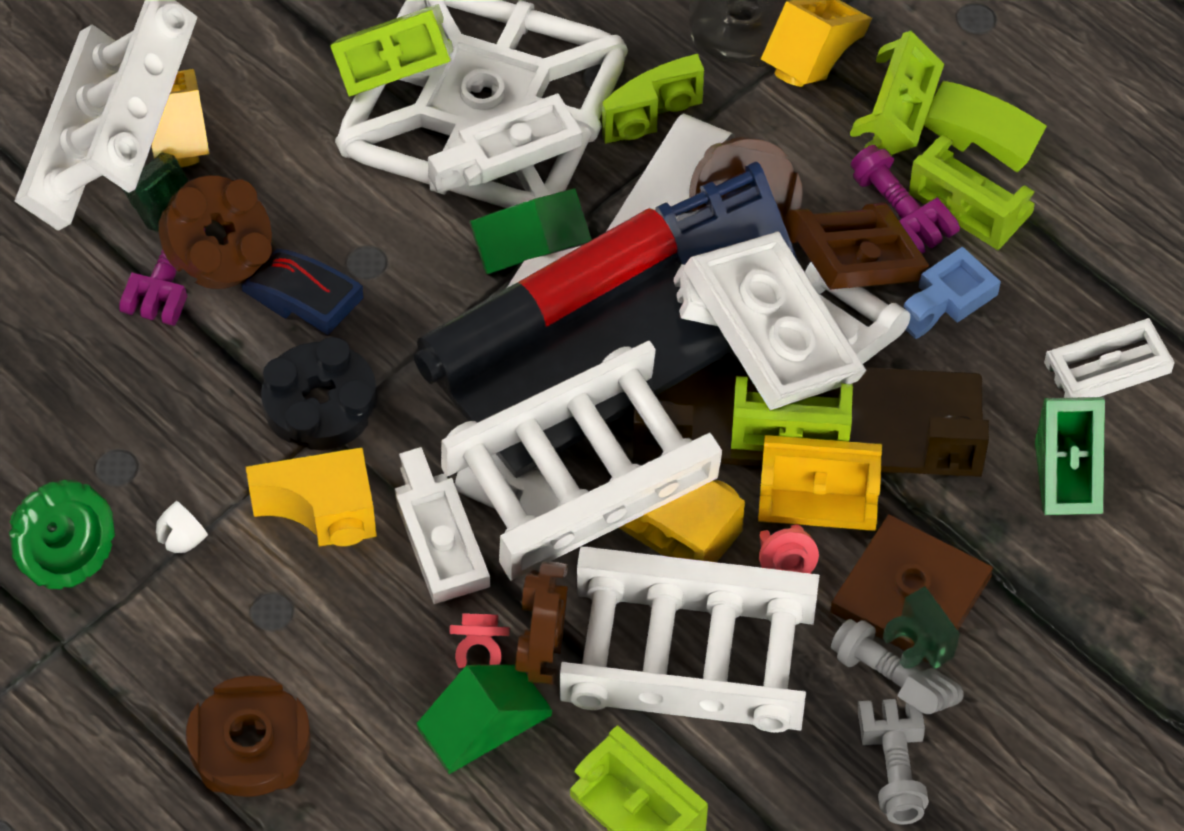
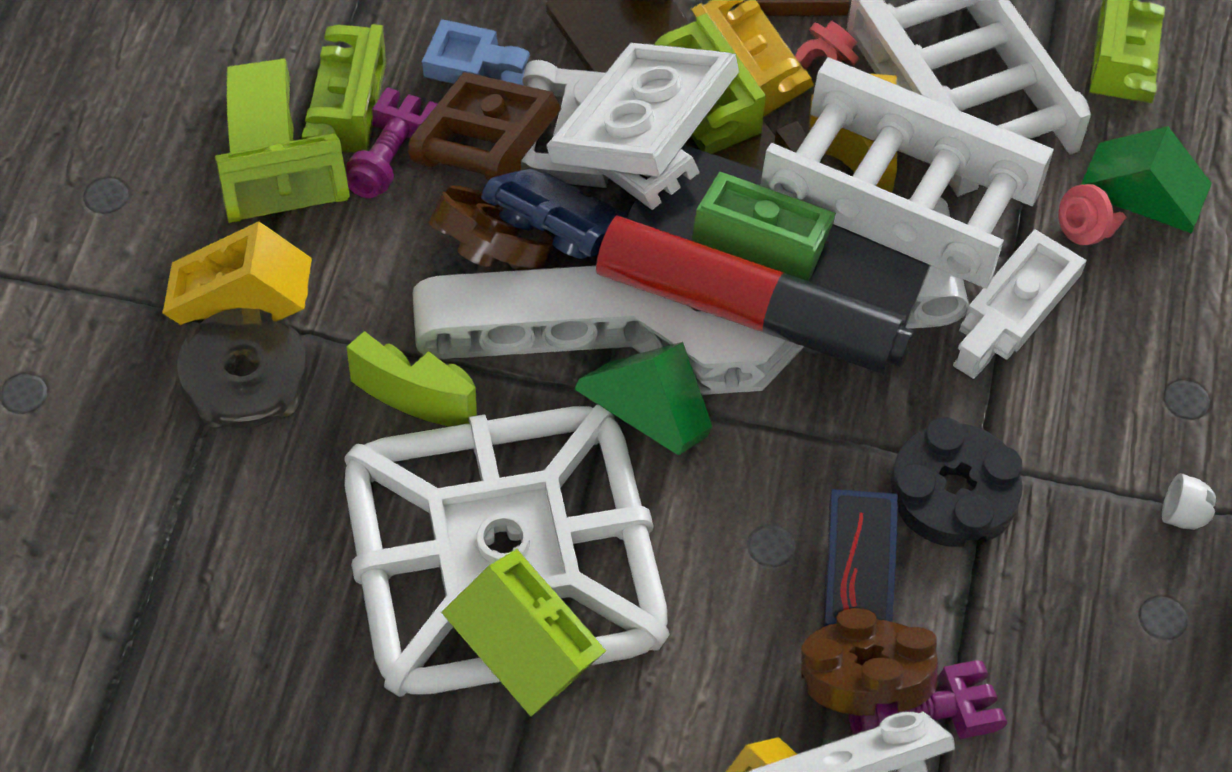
camera: 125 degrees left, 0 degrees up
(319, 491) = (1060, 403): yellow arch -> none
(506, 144) = (580, 448): white hinge -> none
(547, 623) = (1077, 136): reddish brown plate -> none
(590, 337) = (762, 226): none -> bright green slope

